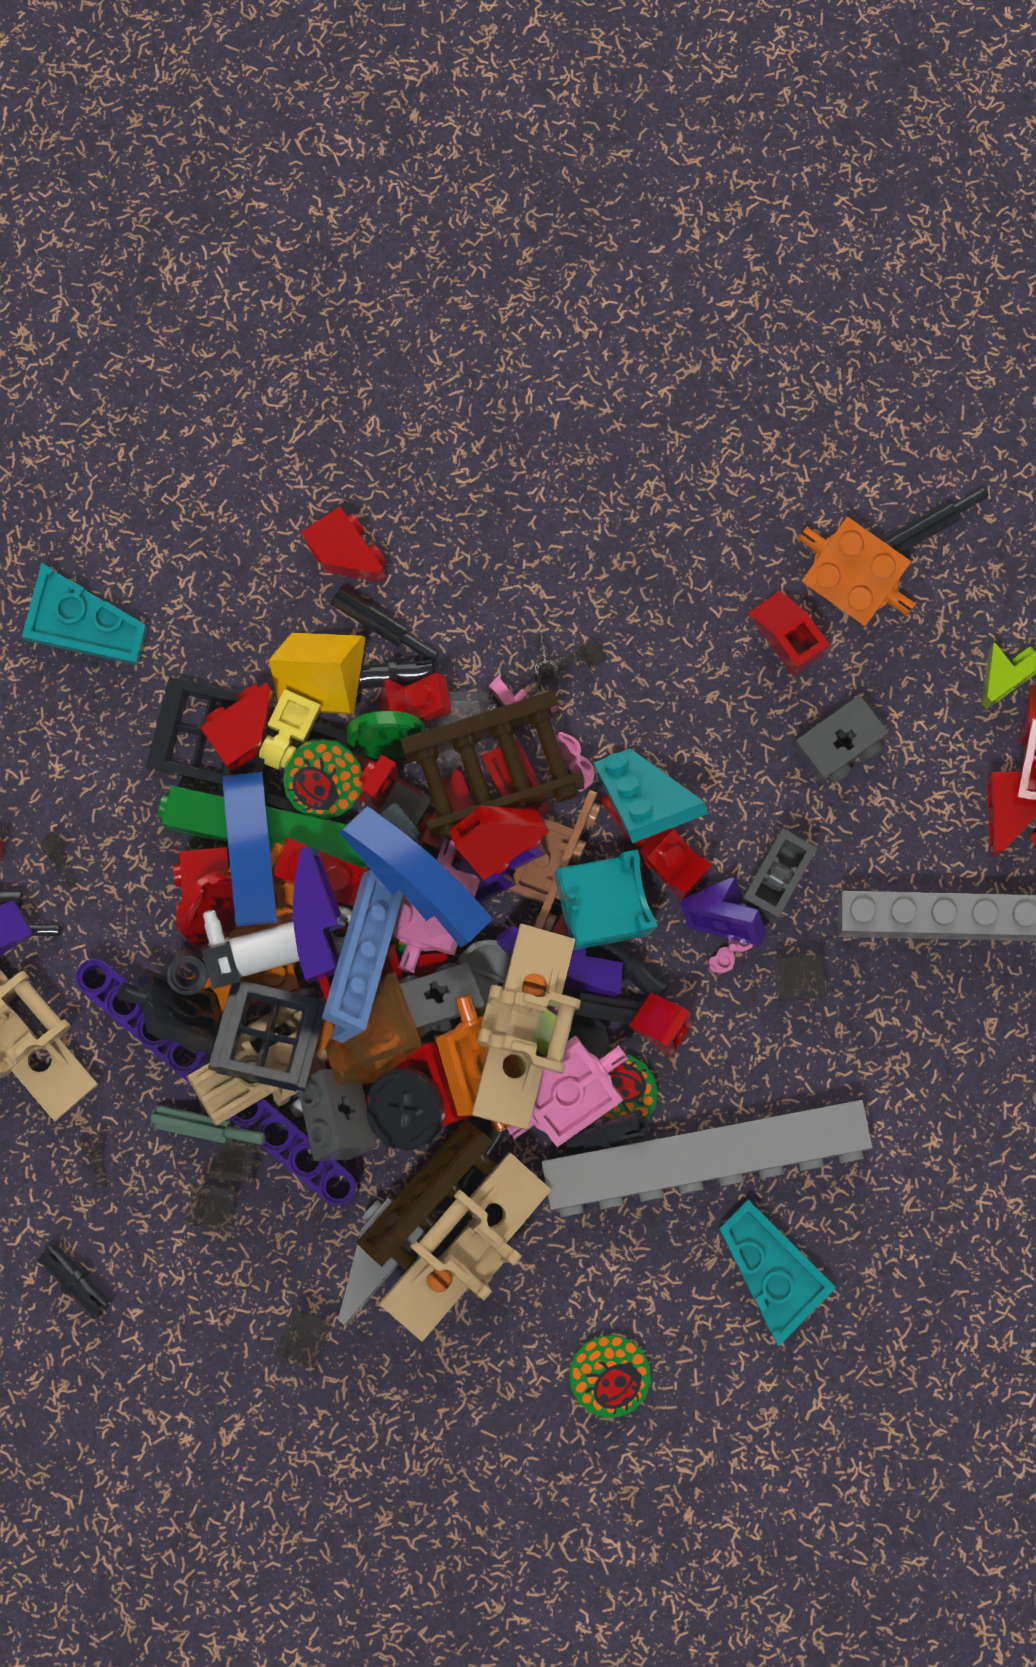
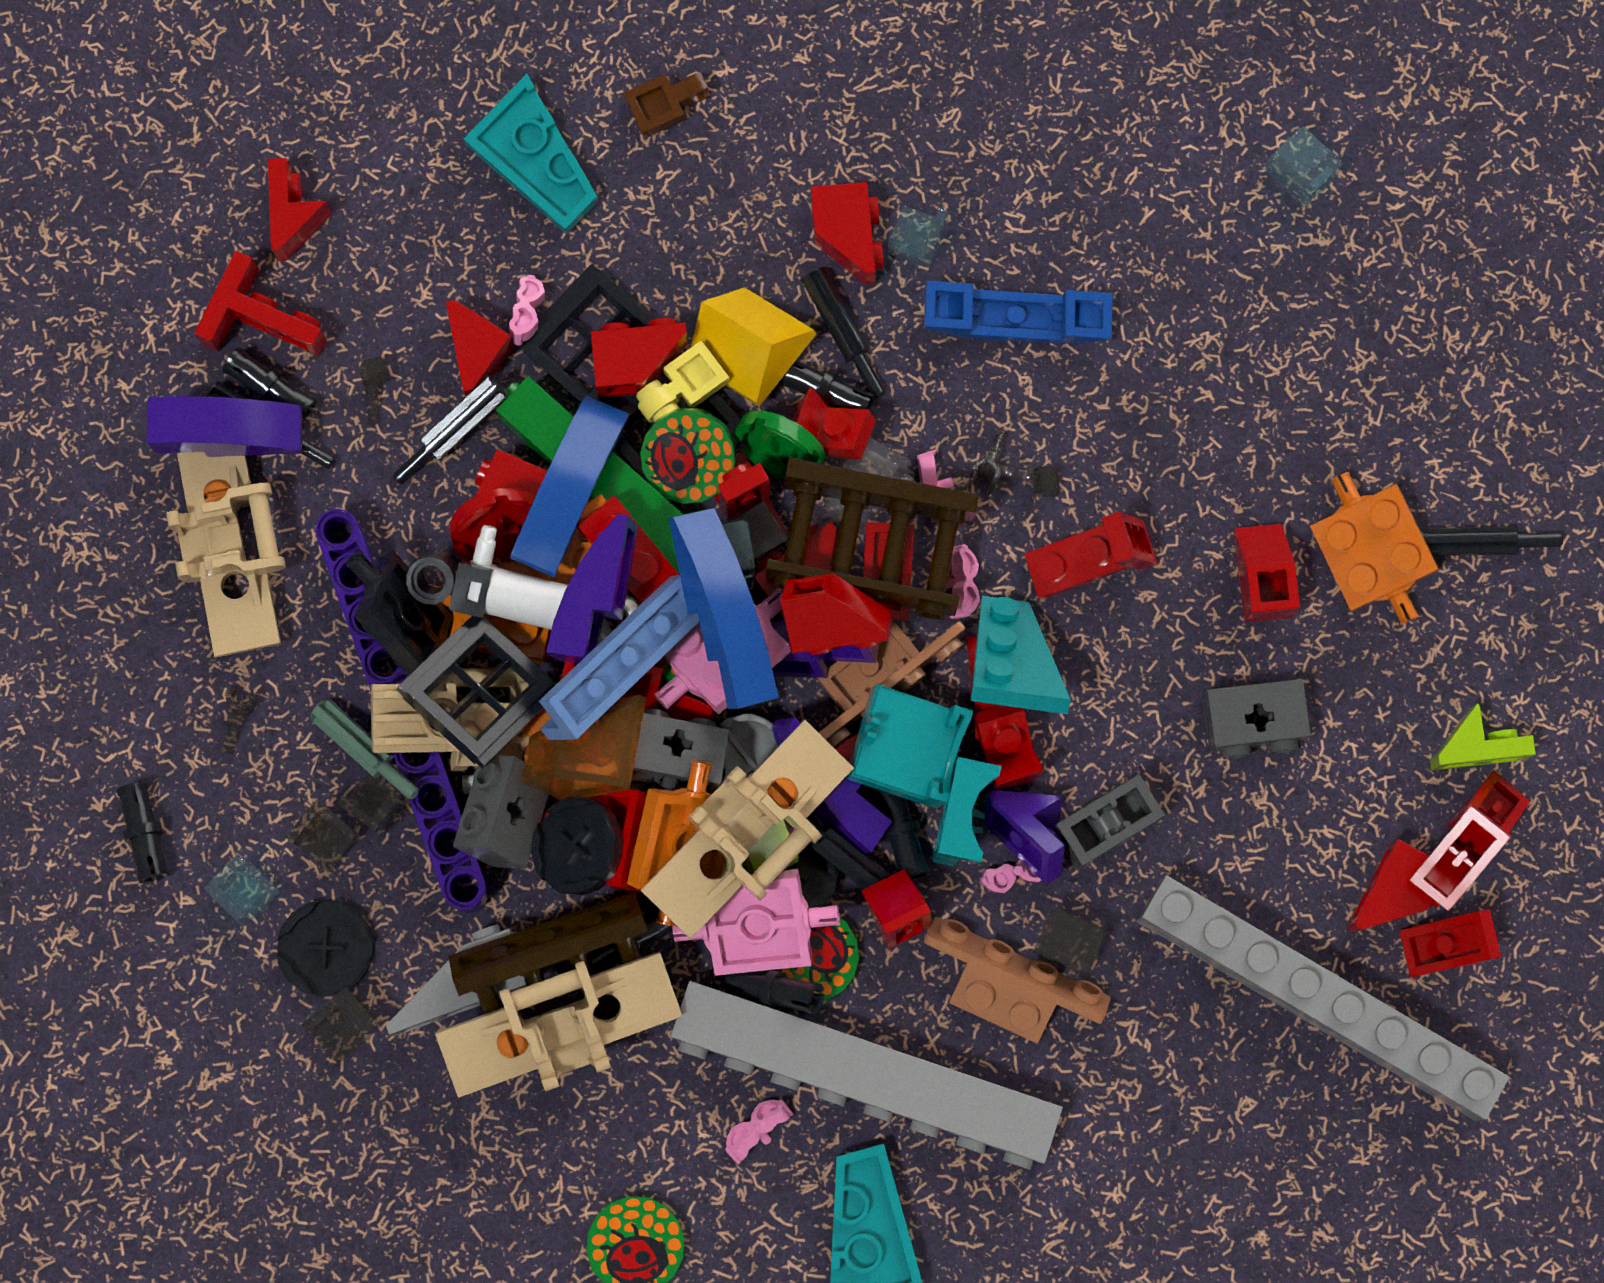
camera: 25 degrees right, 0 degrees up
(121, 784) = (477, 344): none -> red slope
(137, 852) = (455, 425): none -> axle
(144, 744) = (525, 320): none -> bright pink piece
(152, 531) = (658, 104): none -> reddish brown plate
(174, 1281) = (242, 890): none -> clear light blue panel
(258, 1289) = (324, 948): none -> black tile
(397, 524) = (917, 235): none -> clear light blue panel
(505, 543) = (1017, 315): none -> blue slope
(645, 1249) = (763, 1120): none -> bright pink piece
(650, 322) = (1303, 166): none -> clear light blue panel
(656, 690) = (1091, 555): none -> red bracket
(671, 941) = (955, 832): none -> teal piece
(775, 1034) = (1010, 987): none -> nougat bracket

